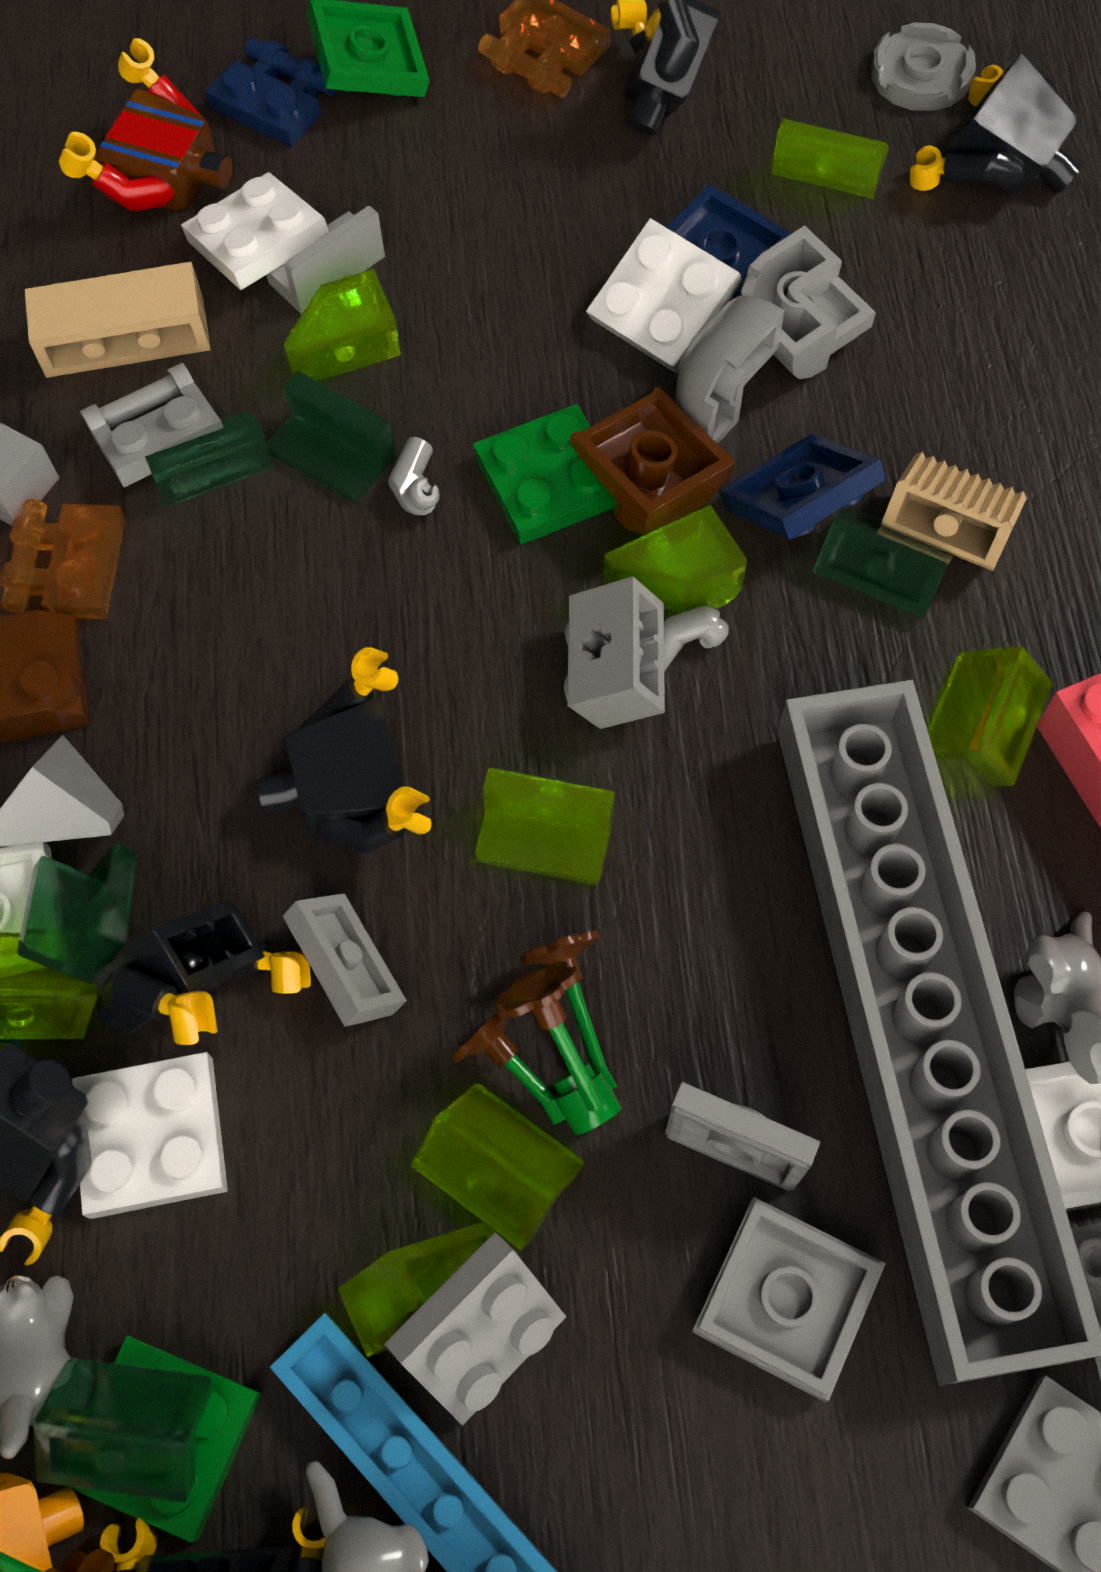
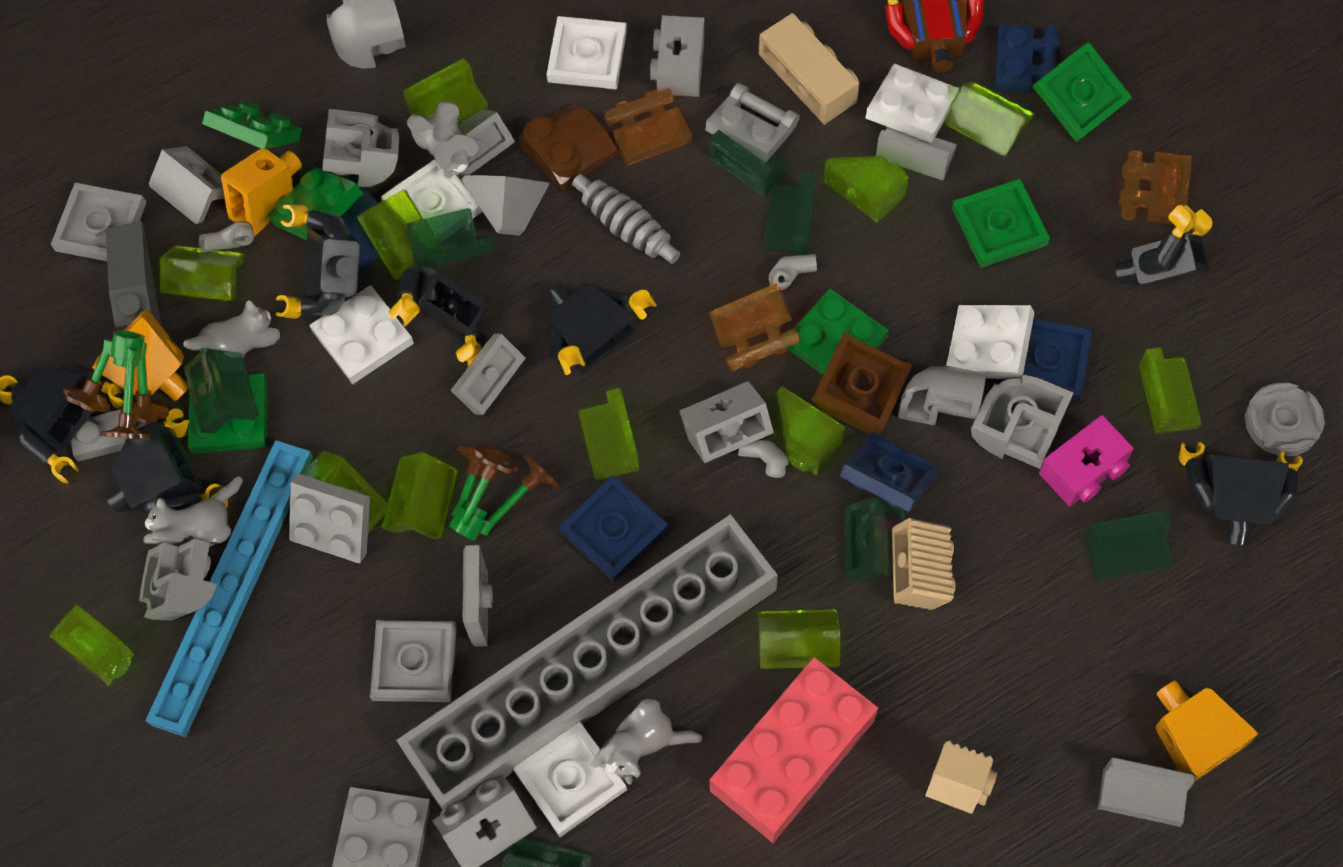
camera: 65 degrees right, 0 degrees up
(199, 649) = (626, 218): none -> light grey piece
(335, 163) = (987, 117): none -> clear neon green panel
(464, 555) = (750, 317): none -> clear orange plate
(494, 215) = (1000, 223): none -> green plate
(702, 888) = (613, 528): none -> dark blue plate
(891, 270) = (1096, 444): none -> dark pink brick
(1022, 285) = (1129, 545): none -> clear green panel

